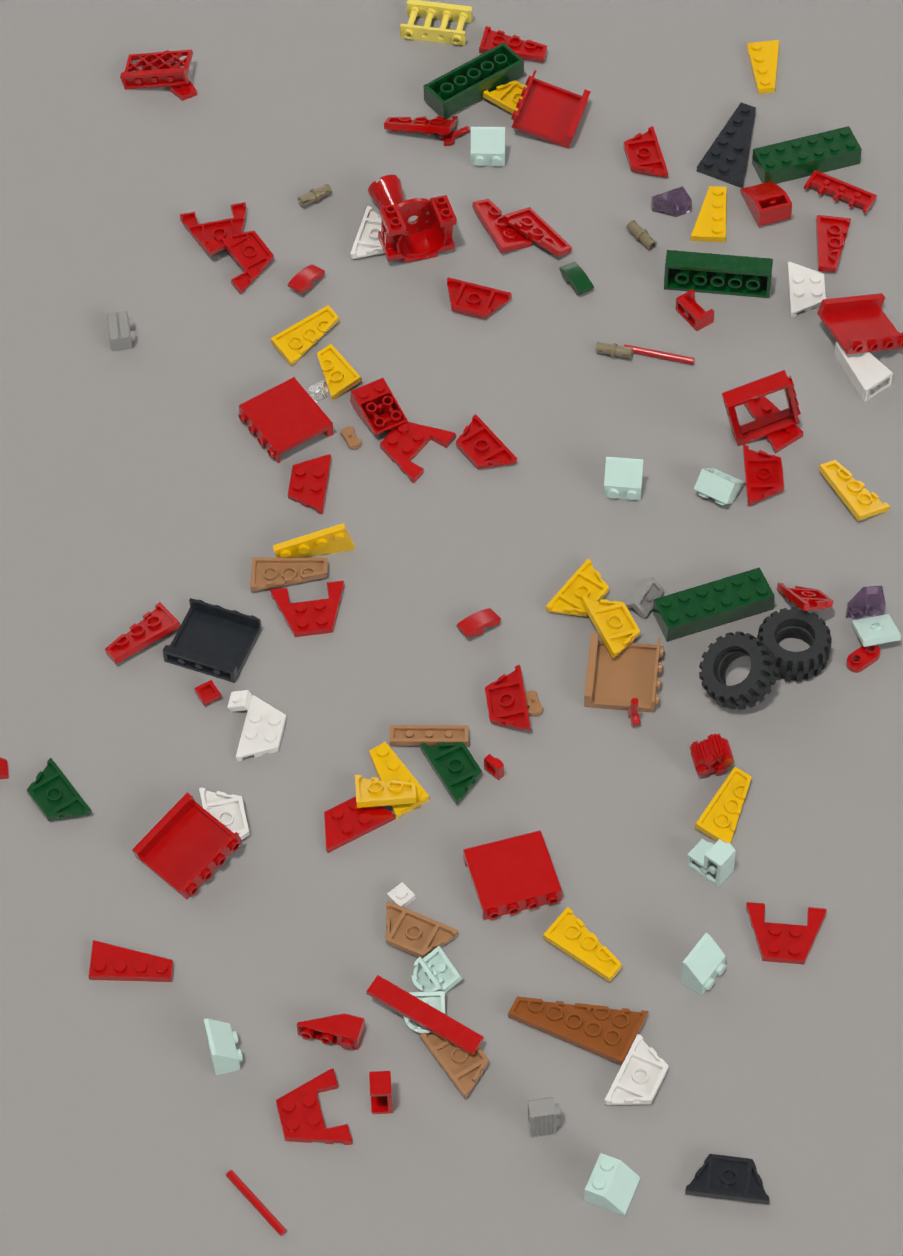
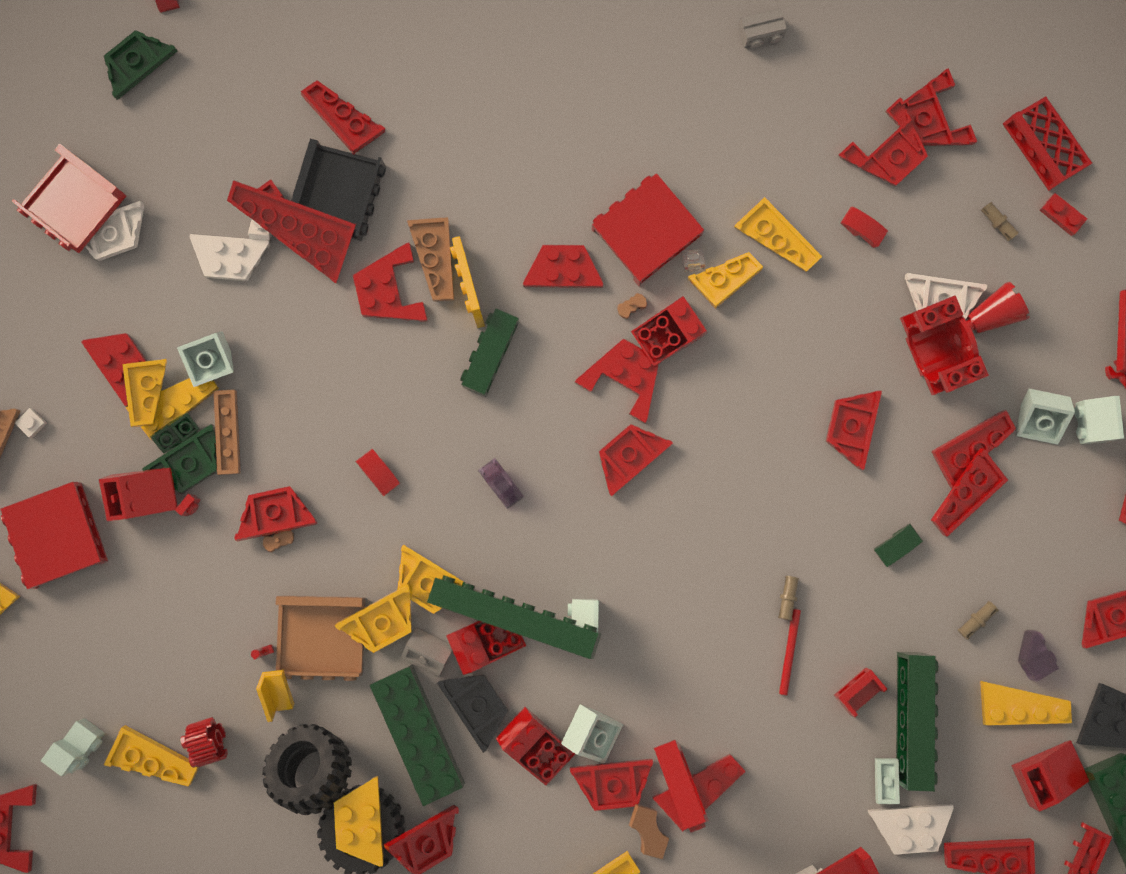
camera: 85 degrees right, 30 degrees up
(248, 658) = (306, 231): none -> red wing
(254, 169) = (1035, 150): none -> red fence
(314, 158) = (1063, 214): none -> red plate
(357, 741) = (207, 358): none -> light aqua slope
(381, 535) = (490, 352): none -> dark green brick
(423, 774) = (174, 432): none -> dark green slope
(480, 180) = (1044, 416): none -> light aqua slope
(480, 799) = (138, 493): none -> red slope
(497, 533) = (501, 483): none -> slope
(615, 516) = (515, 618): none -> dark green brick
(636, 555) = (482, 644): none -> red slope
(671, 702) = (274, 693): none -> yellow panel
(691, 564) = (476, 706): none -> black wing
(726, 525) = (534, 746): none -> red slope
(767, 300) = (887, 781): none -> light aqua plate
(784, 630) = (359, 823): none -> yellow wing
(808, 451) = (652, 840): none -> medium nougat tile

